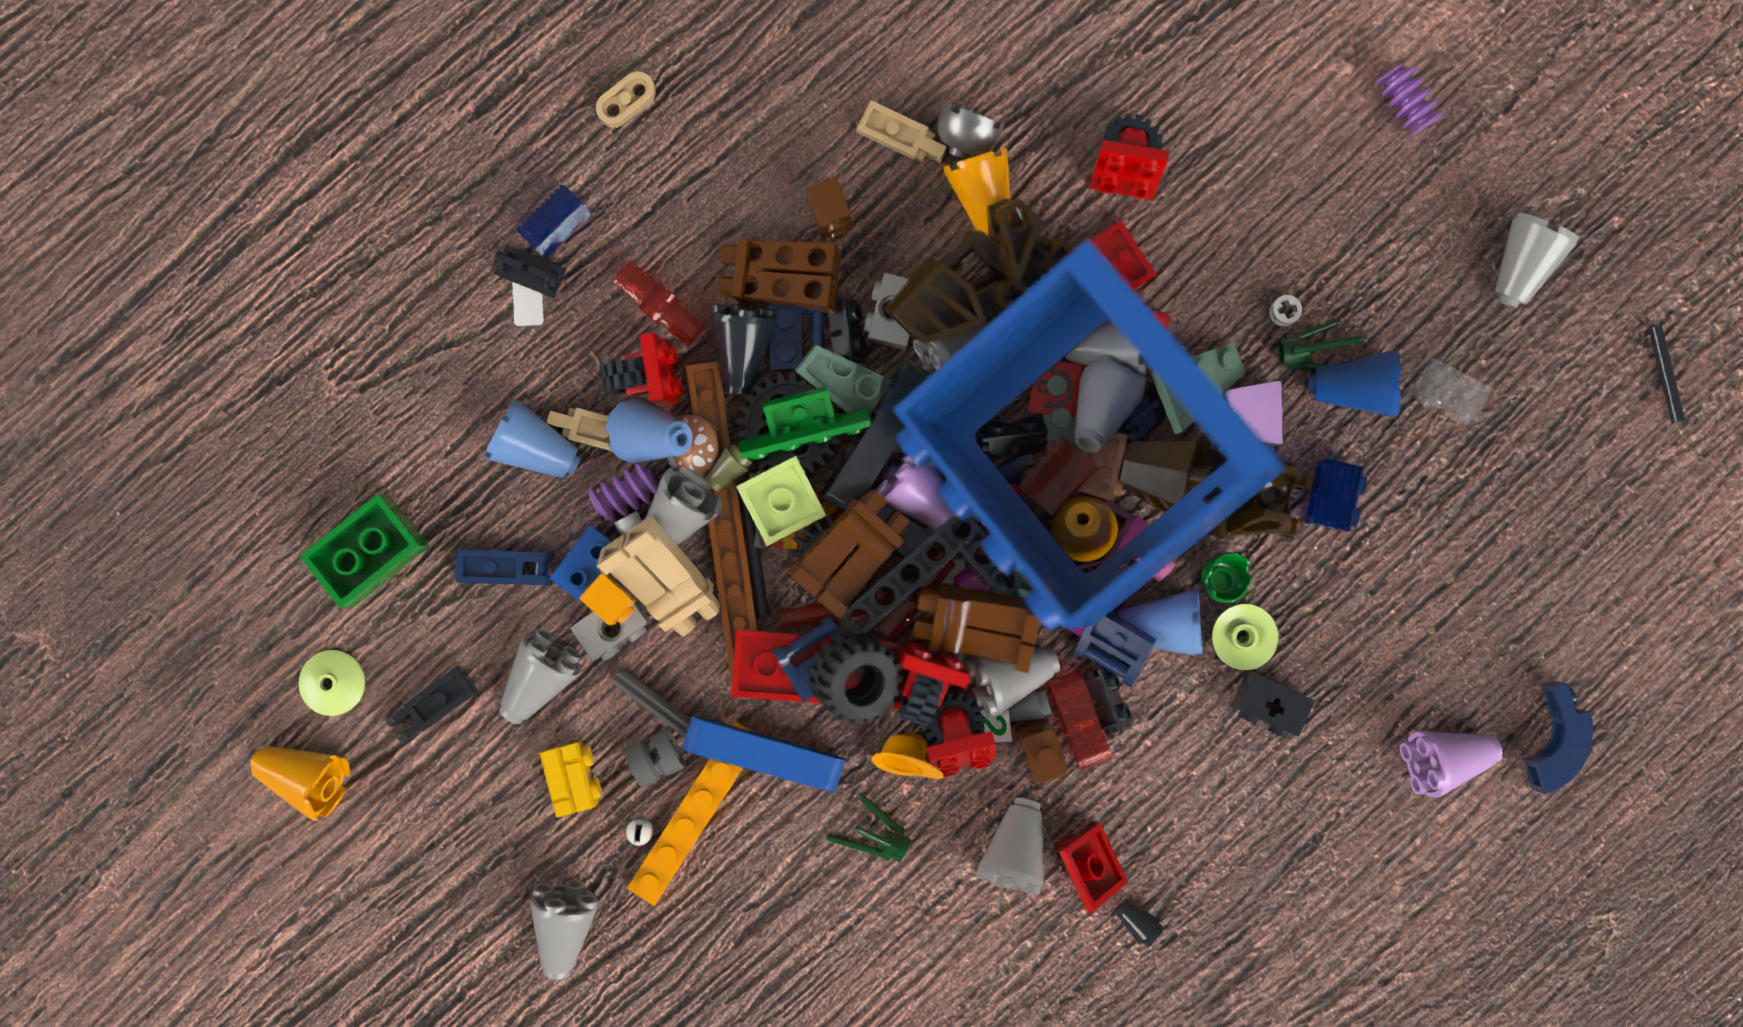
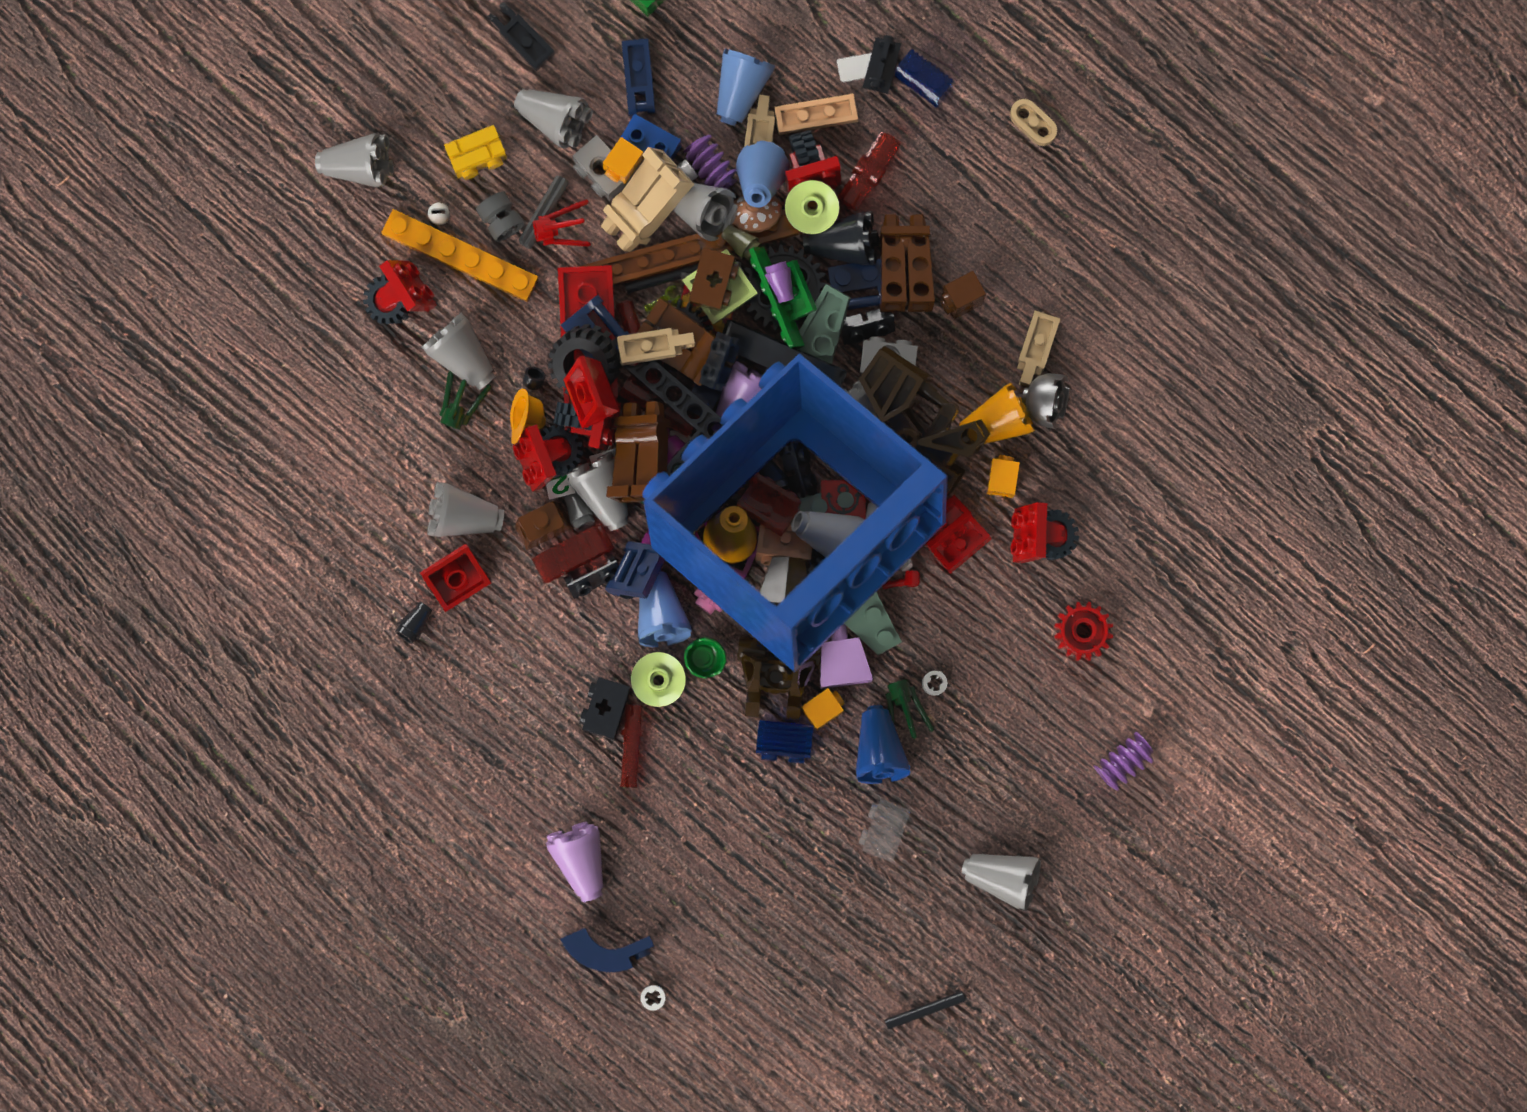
camera: 85 degrees right, 5 degrees down
(579, 358) = (816, 114): none -> light nougat plate
(679, 703) = (546, 228): none -> red plant
(712, 370) = (812, 220): none -> yellowish green dish
(733, 895) = (397, 293): none -> red plate
(754, 507) = (702, 290): none -> reddish brown brick
(763, 753) = (514, 301): blue beam -> none
(781, 570) = (648, 307): none -> clear neon green hand
(786, 425) = (780, 280): none -> medium lavender cone
(817, 827) = (460, 352): none -> light grey cone
(850, 592) = (653, 345): none -> tan hinge
(858, 741) = (533, 378): none -> black hinge
(891, 519) = (714, 372): none -> black hinge
(902, 676) = (590, 391): none -> red slope
(1052, 194) = (1003, 476): none -> light orange brick
(1261, 114) = (1076, 644): none -> red gear
(1304, 444) = (823, 708): none -> light orange brick
(1305, 677) = (631, 745): none -> clear red pin
(1606, 692) = (655, 1006): none -> white bush

